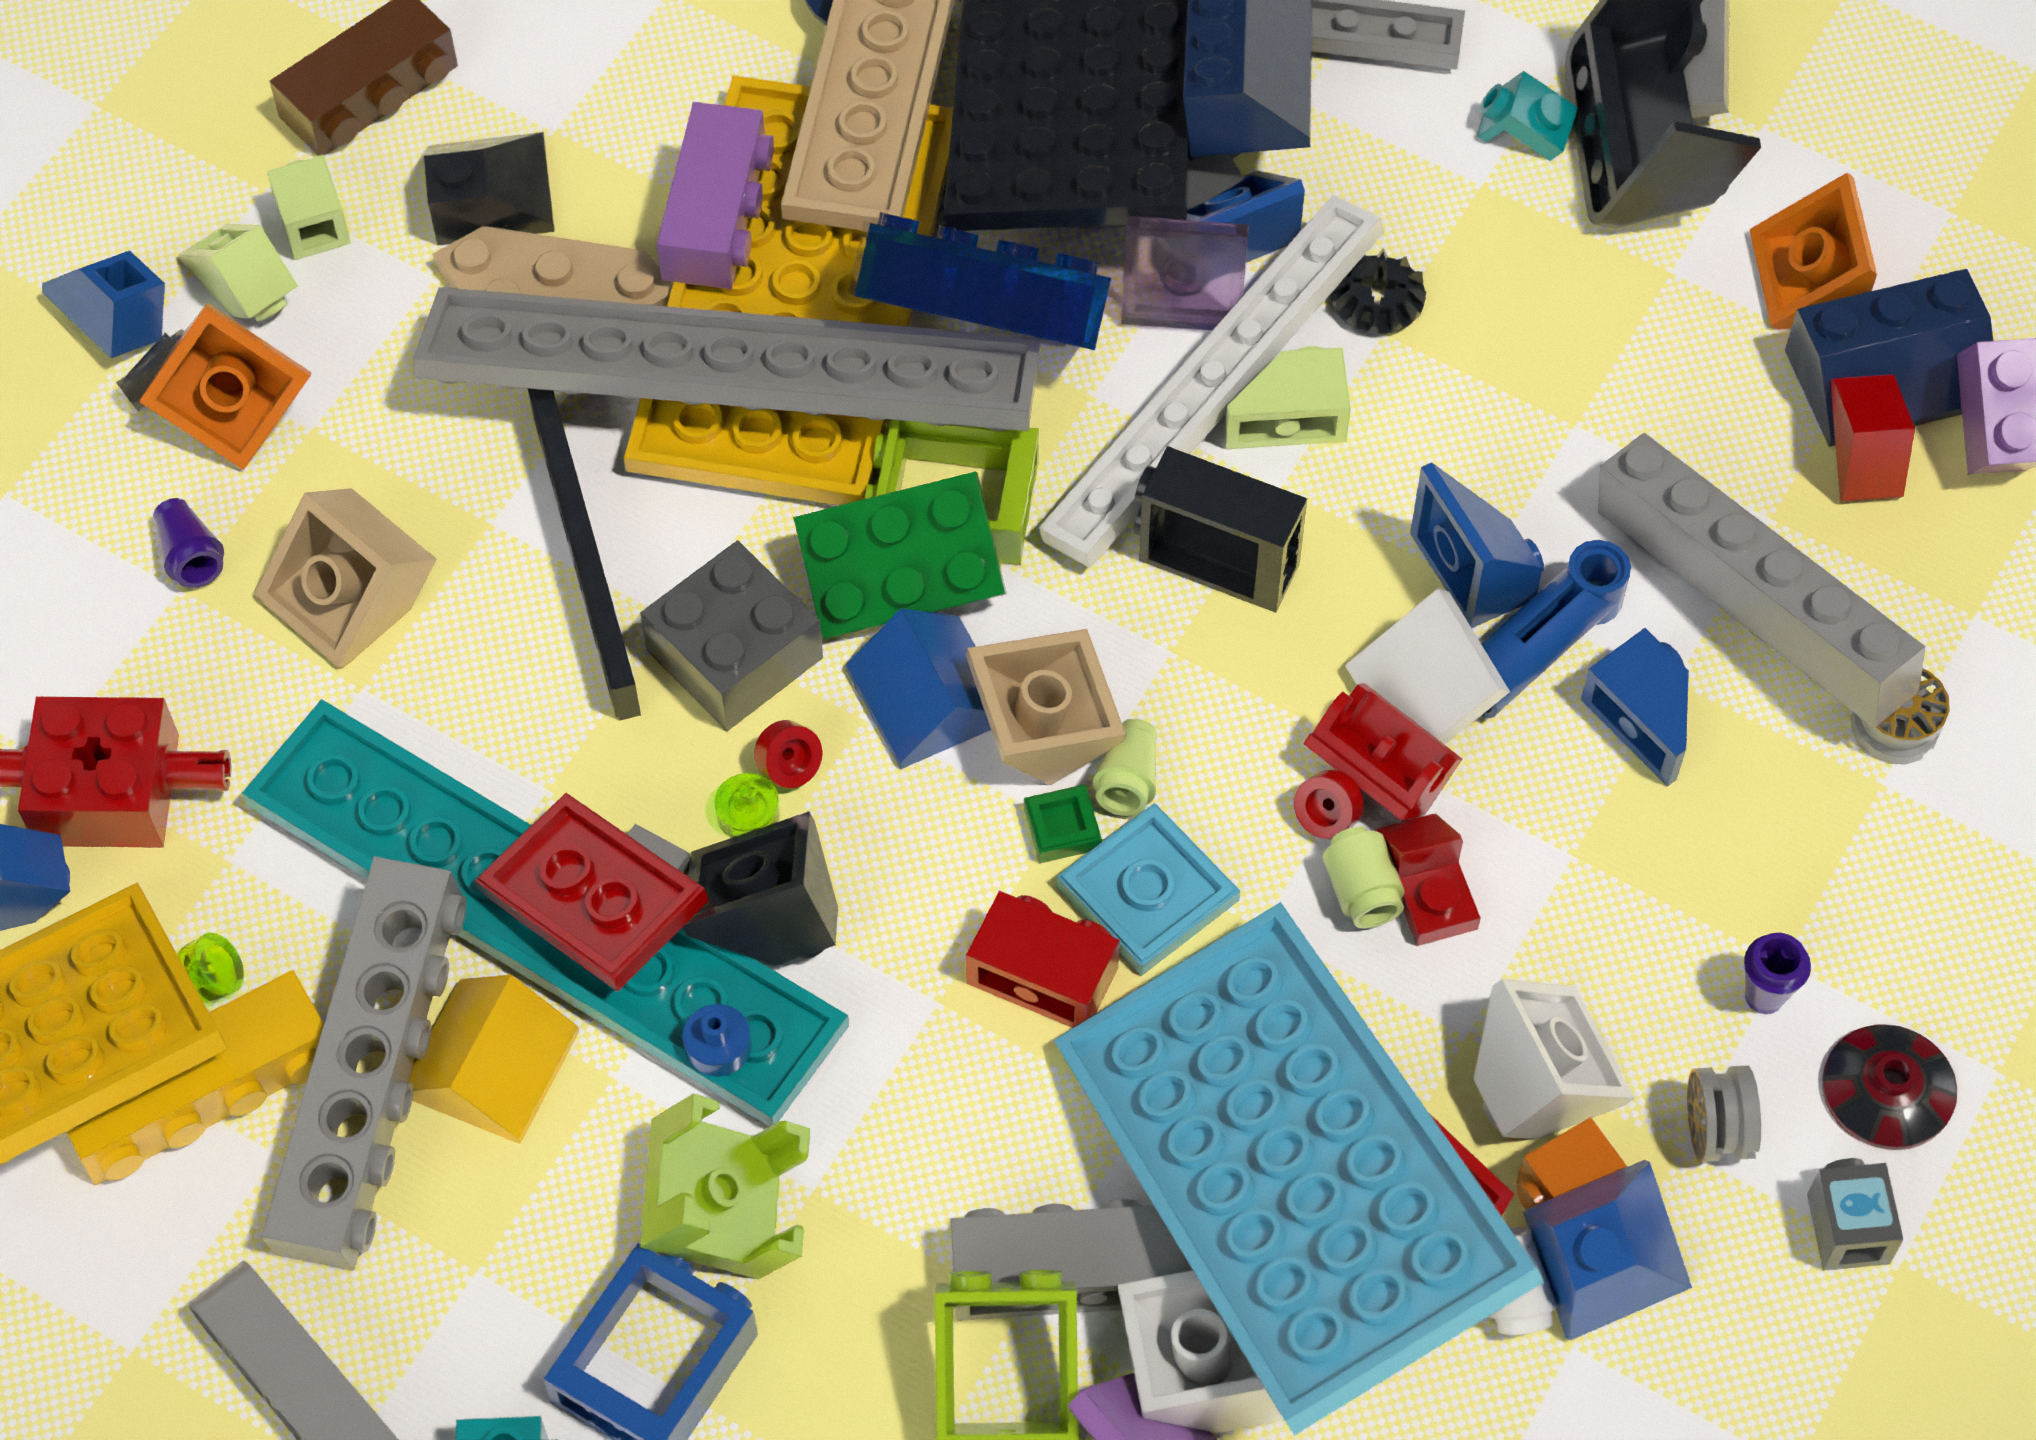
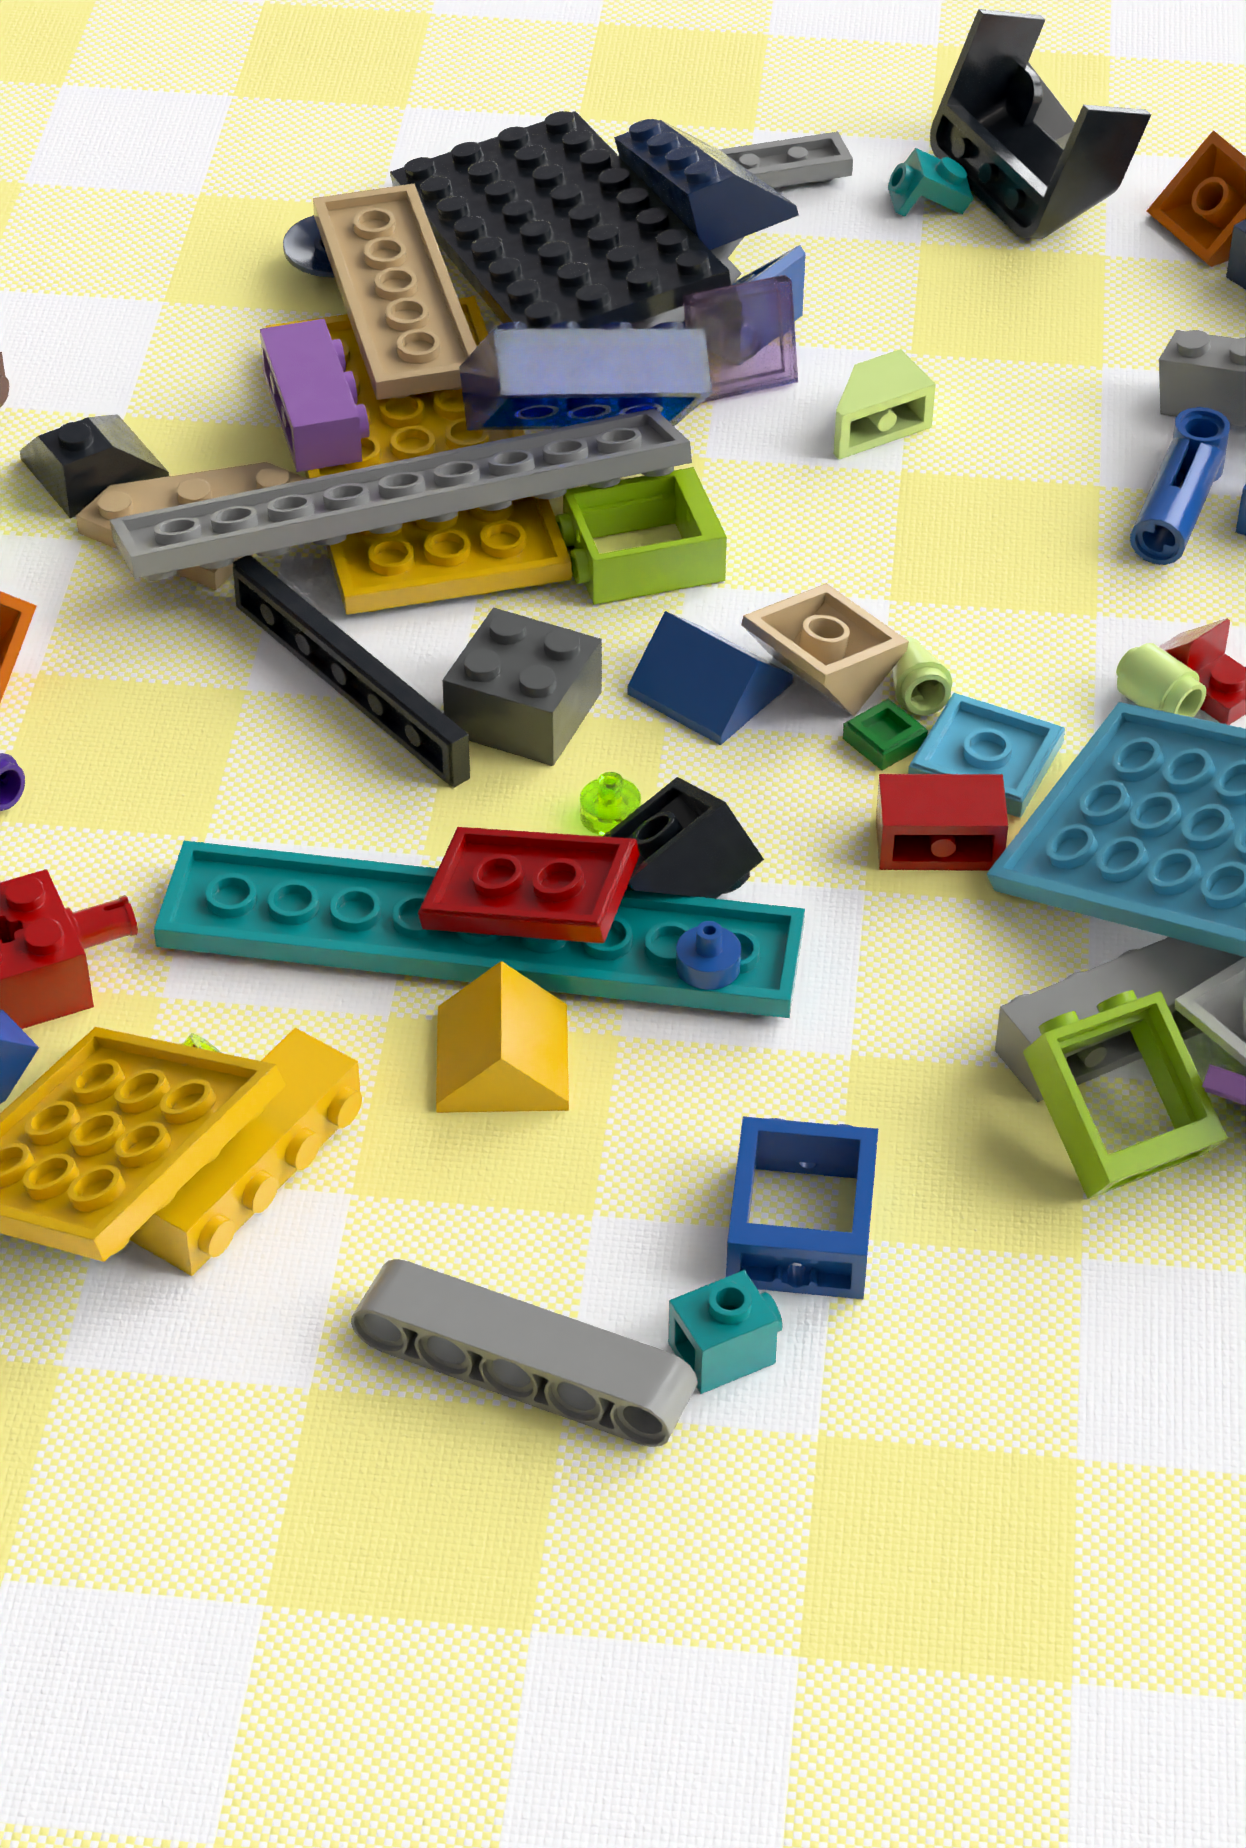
camera: 25 degrees left, 15 degrees down
(343, 573) = (142, 752): tan slope -> none
(393, 900) = (384, 983): light grey brick -> none
(718, 1190) = (780, 1060): lime panel -> none
(788, 753) = (625, 750): red tile -> none
(897, 551) = (634, 575): green plate -> none
(1213, 376) = (804, 410): white plate -> none
(1220, 528) = (888, 525): black window -> none
(1328, 804) = (1085, 656): red tile -> none
(1383, 752) = (1117, 597): red hinge -> none
(1401, 301) = (873, 326): black gear -> none
(1432, 668) = (1119, 537): white tile -> none
(1473, 548) = (1088, 447): blue slope -> none

